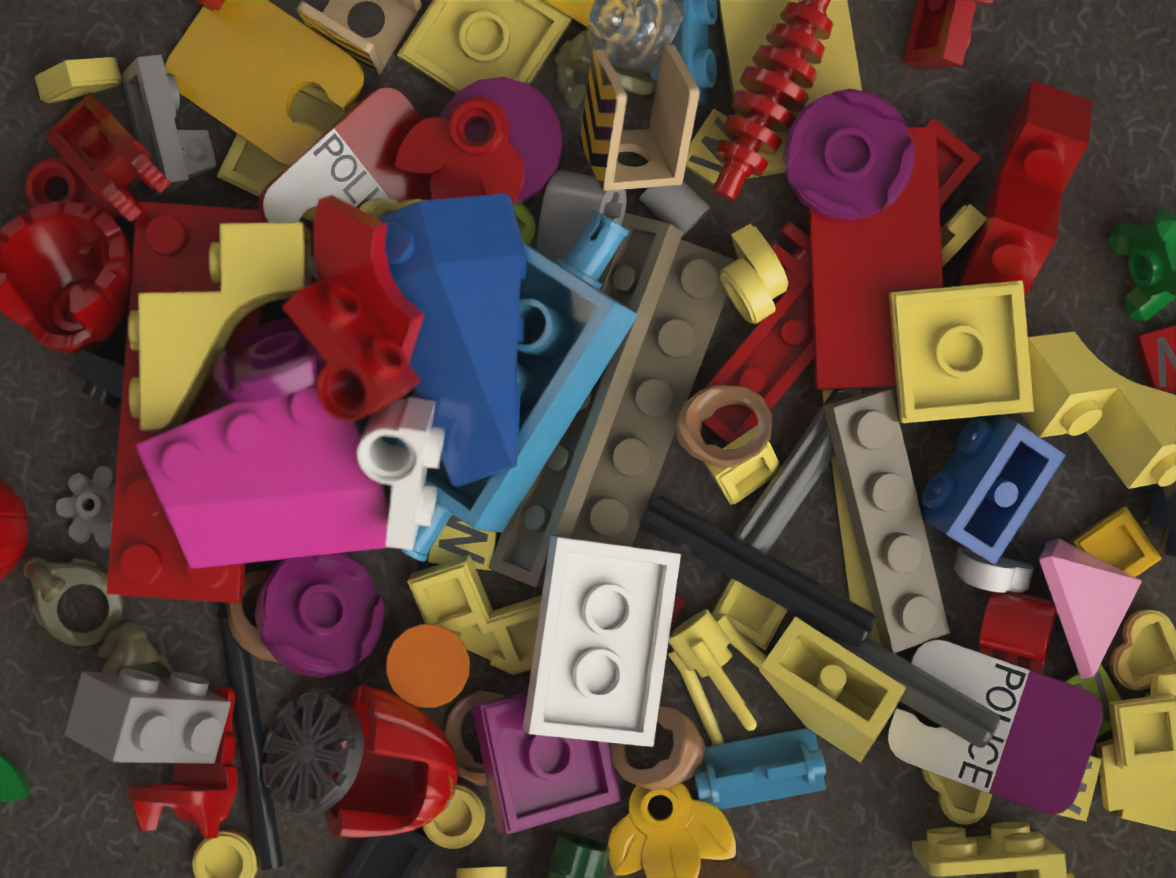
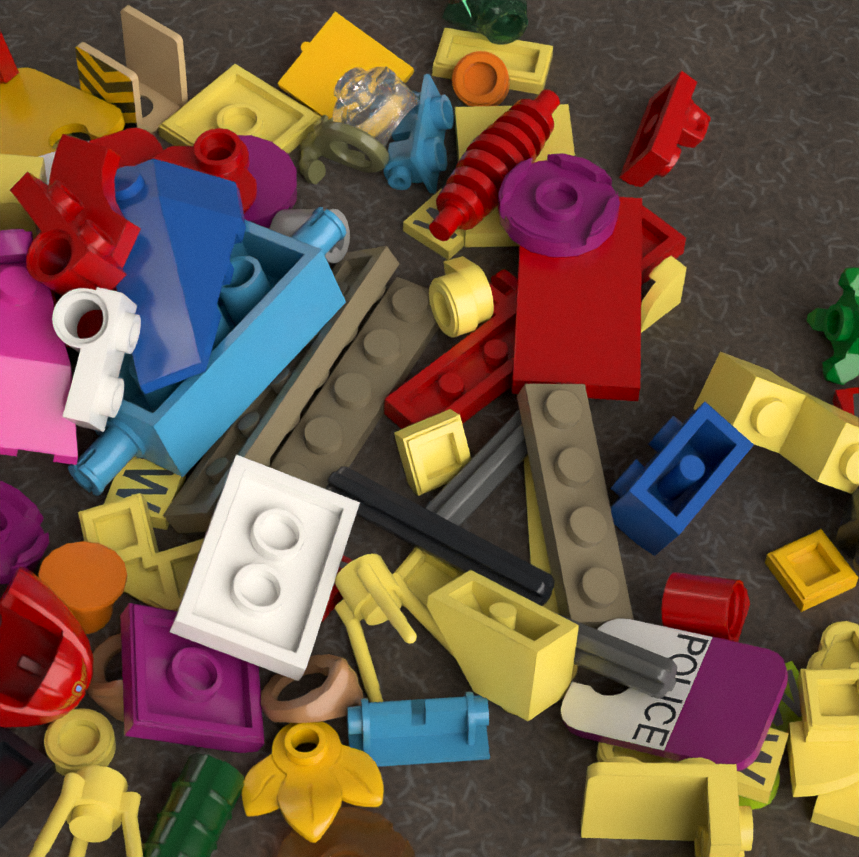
camera: 10 degrees right, 35 degrees down
(662, 144) = (398, 170): tan piece -> none
(675, 205) = (406, 251): light grey hinge -> none
(703, 406) = (393, 390): medium nougat piece -> none
(961, 352) = (653, 355): light yellow tile -> none
(1001, 577) = (681, 554): white tile -> none
(1026, 197) = (717, 279): red arch -> none
(1088, 599) = (781, 594): bright pink slope -> none

